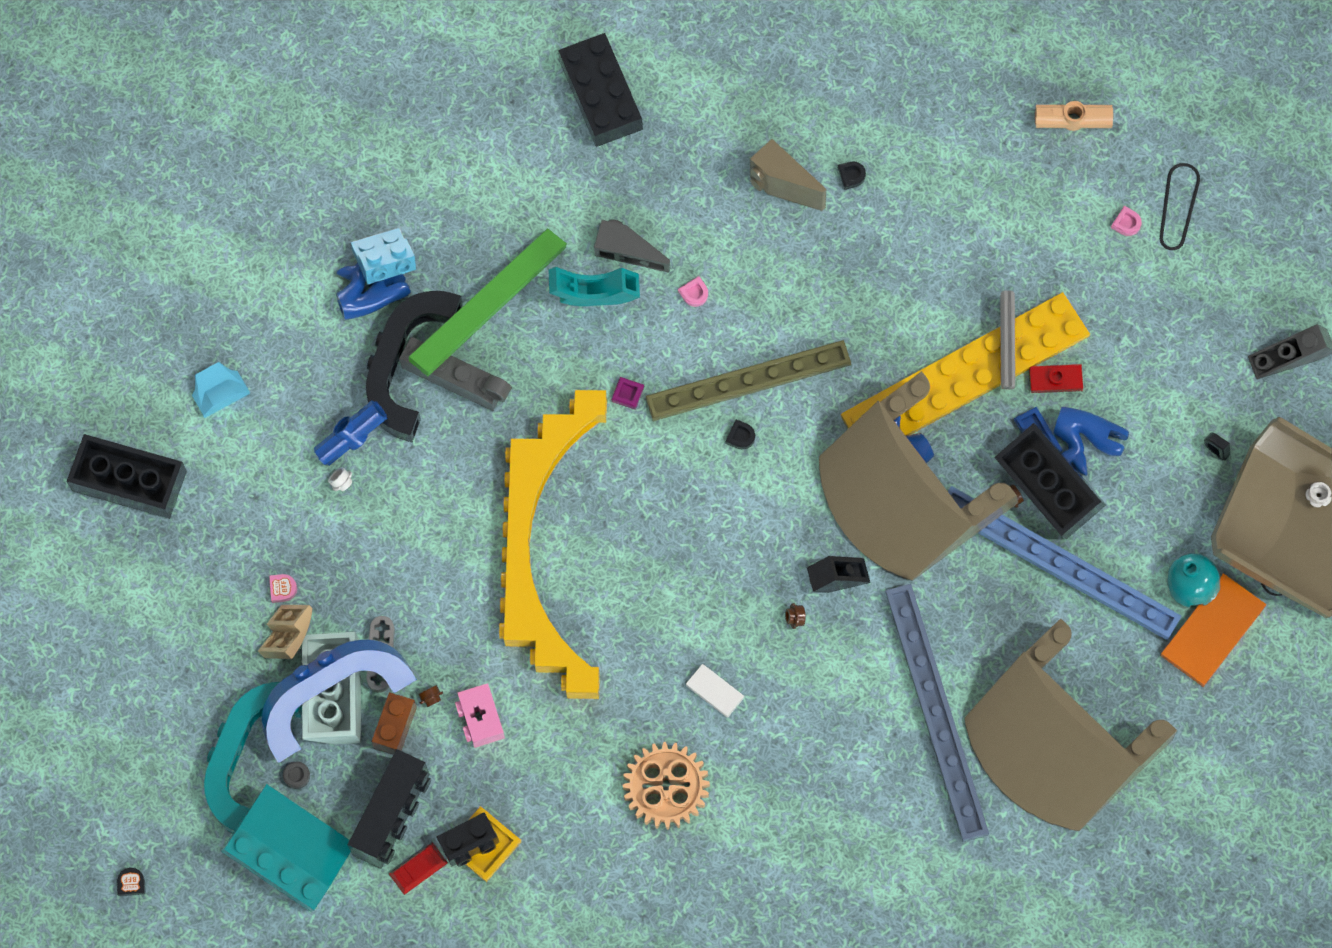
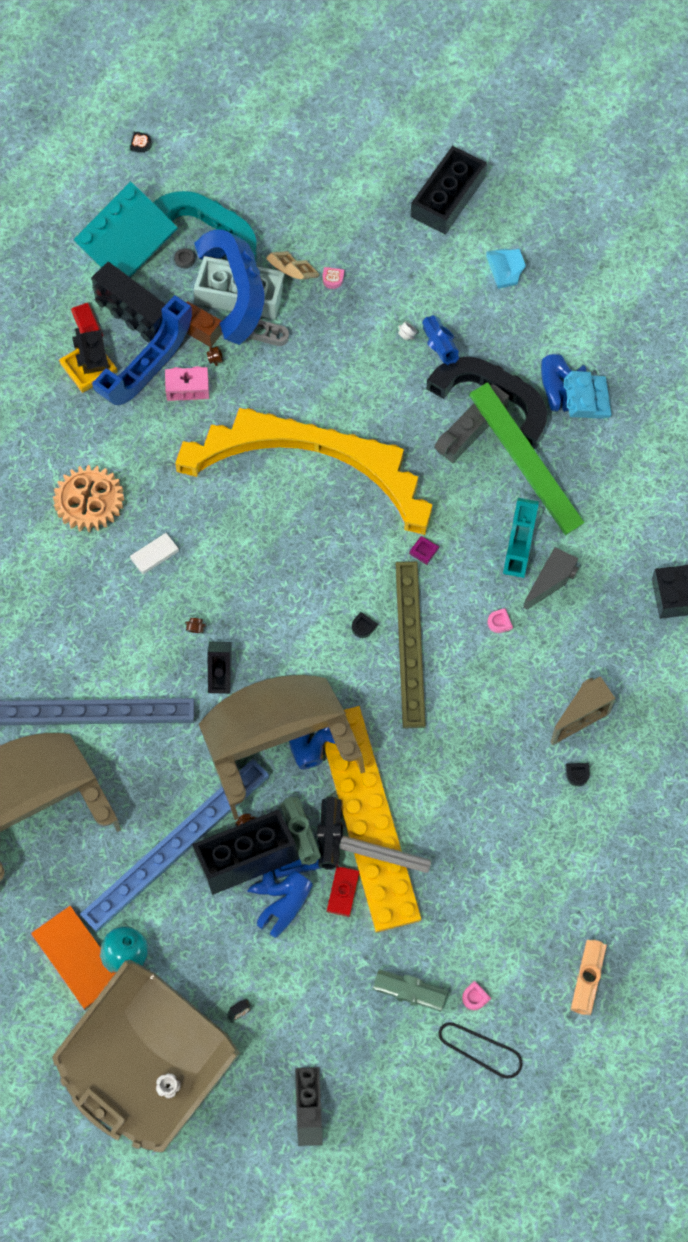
camera: 100 degrees right, 5 degrees down
(506, 786) = (173, 329): none -> blue arch
(992, 444) = (297, 820): none -> sand green piece
(998, 404) = (330, 833): none -> black piece
(1143, 284) = (410, 990): none -> sand green piece

